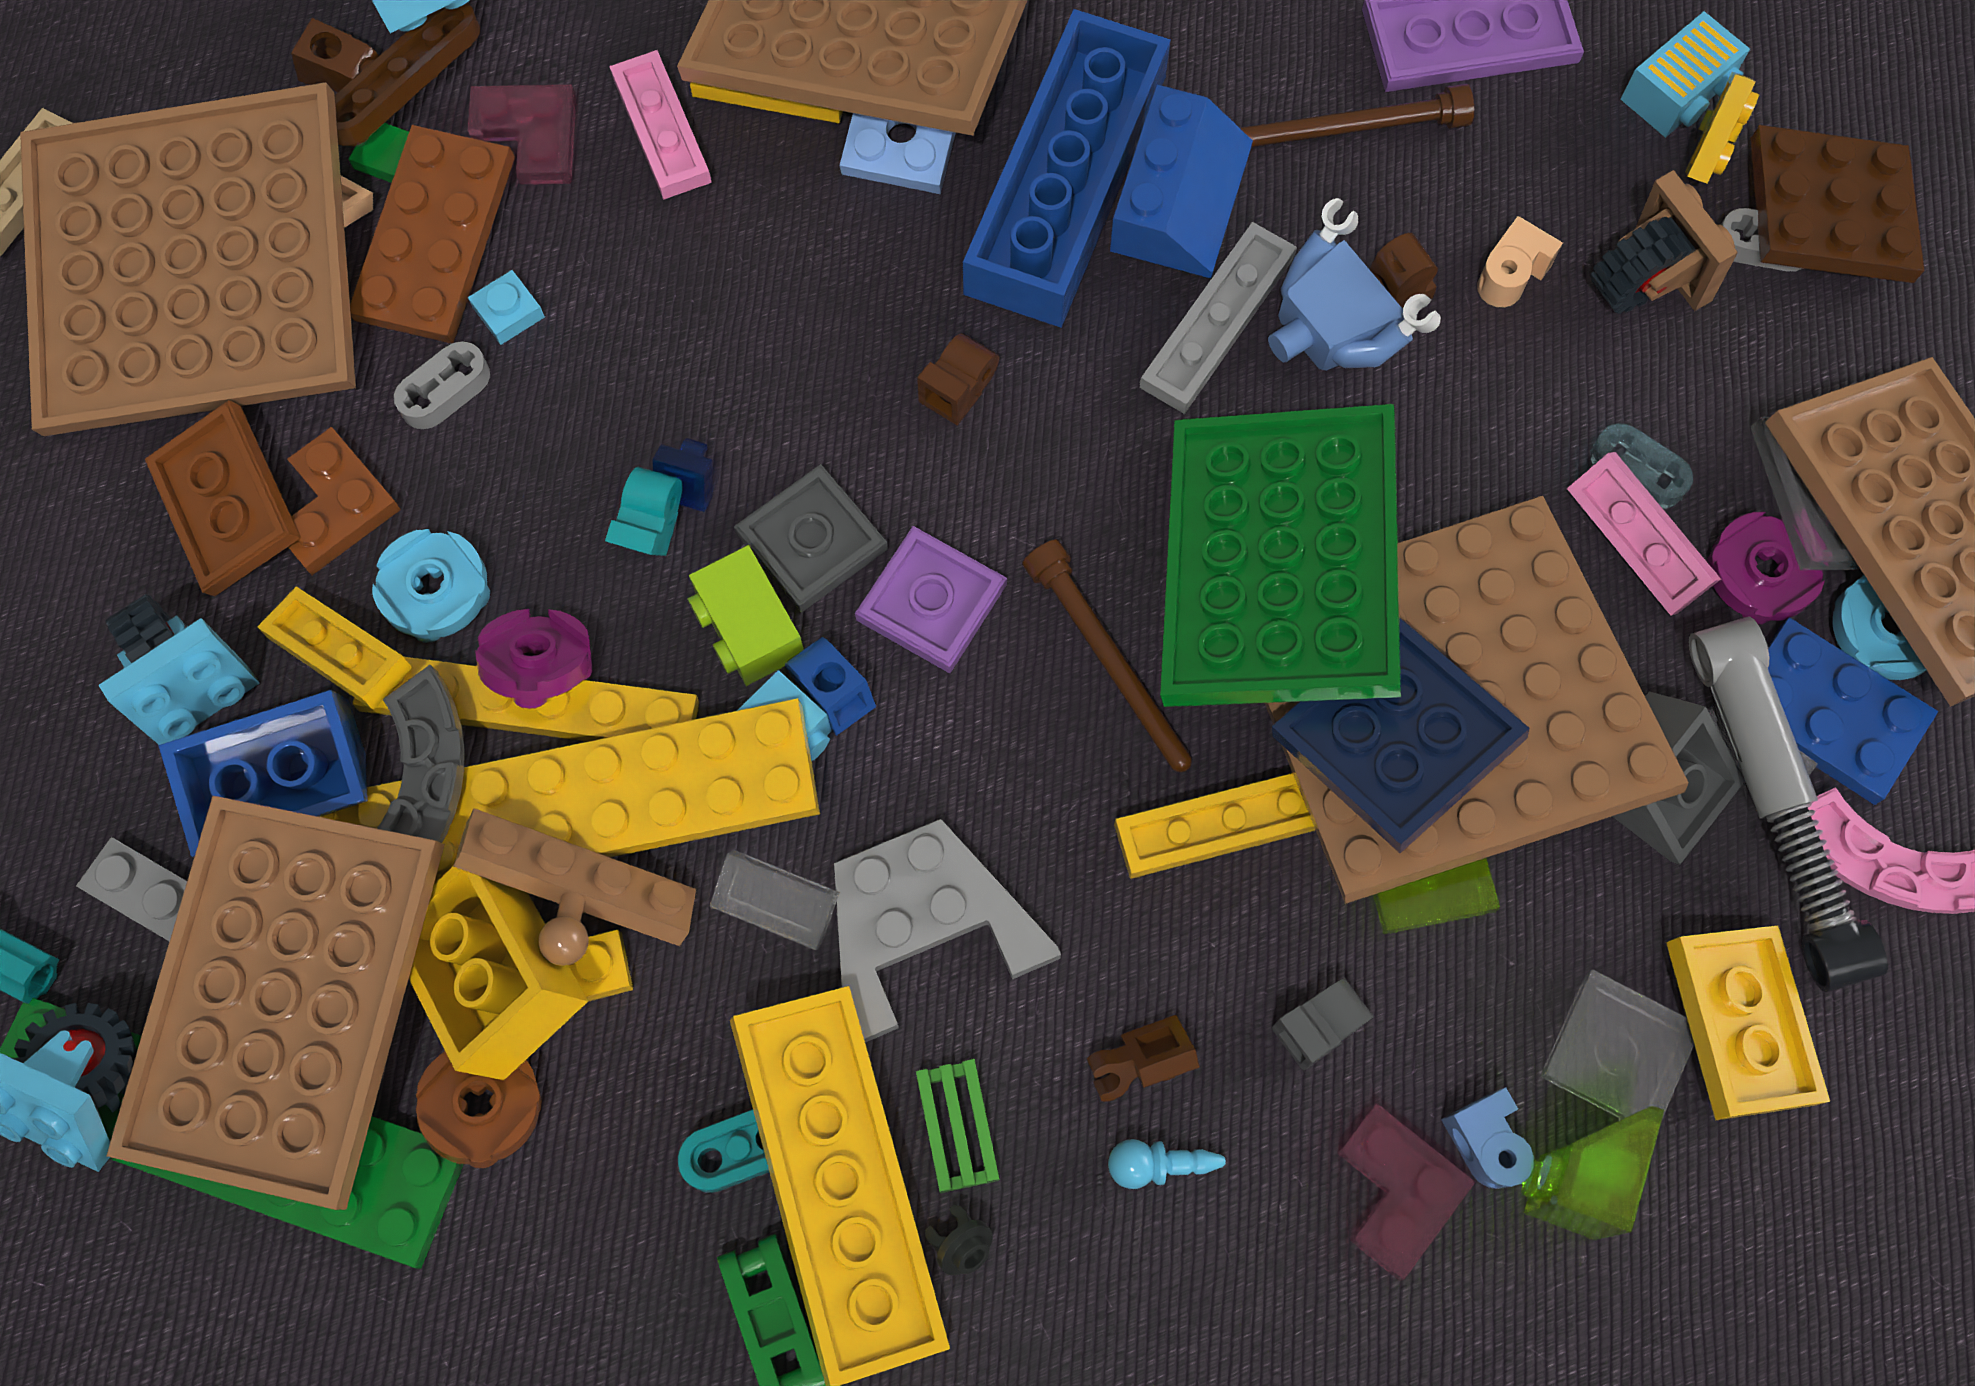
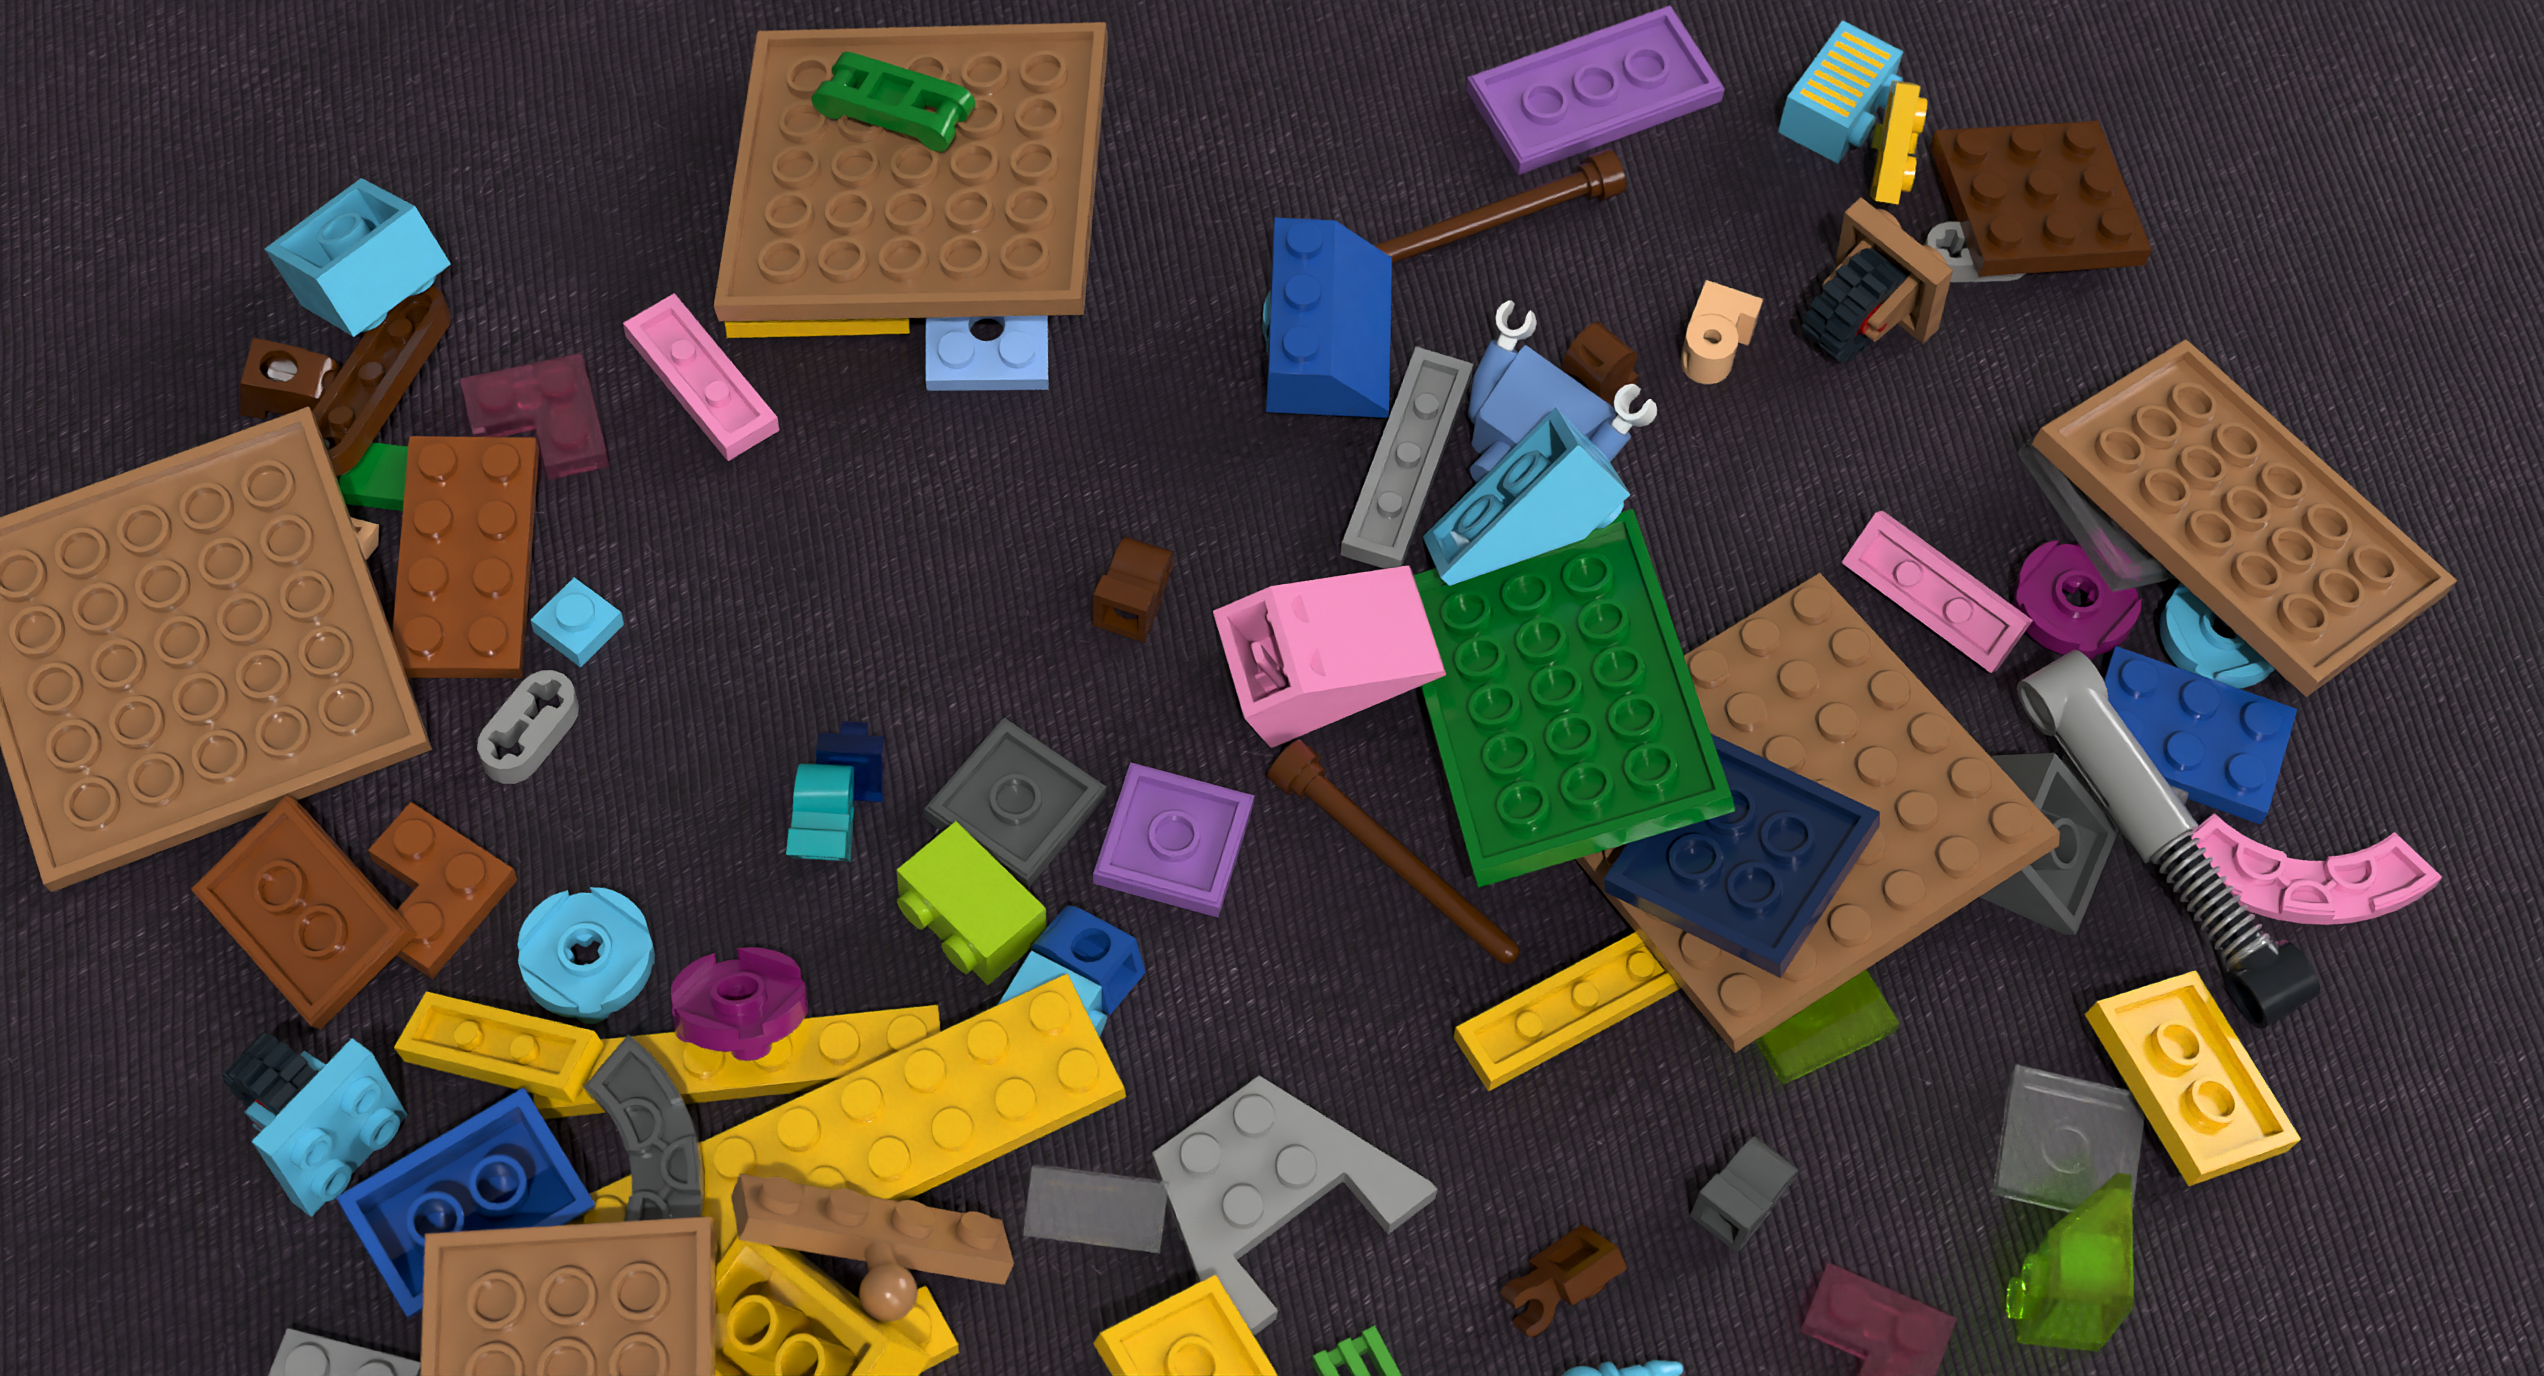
camera: 20 degrees left, 10 degrees down
(1065, 168) = (1191, 331): blue brick -> none
(1097, 467) = (1326, 649): none -> bright pink slope
(1306, 381) = (1530, 503): none -> medium azure slope
(1487, 1142) = (1958, 1274): medium blue leg -> none
(1647, 462) = (1919, 513): clear light blue beam -> none

